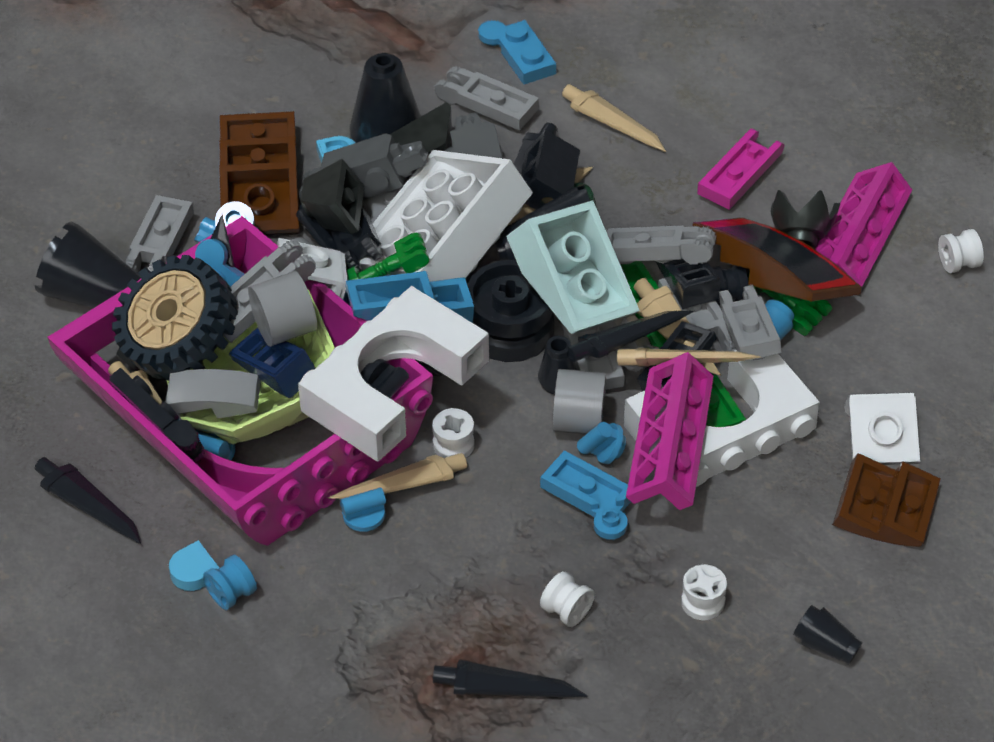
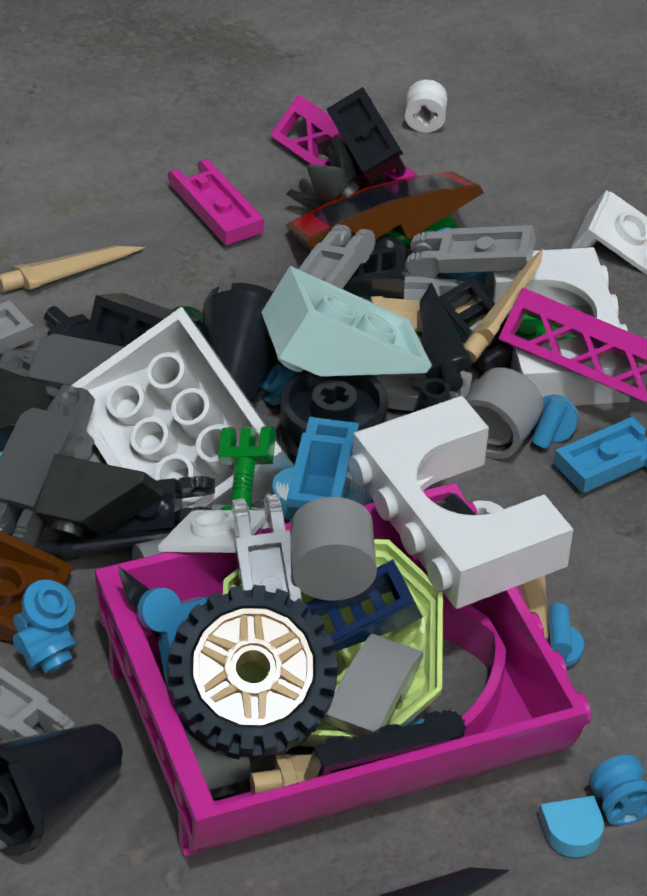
camera: 70 degrees left, 5 degrees down
(838, 210) = (367, 136): none -> black hinge

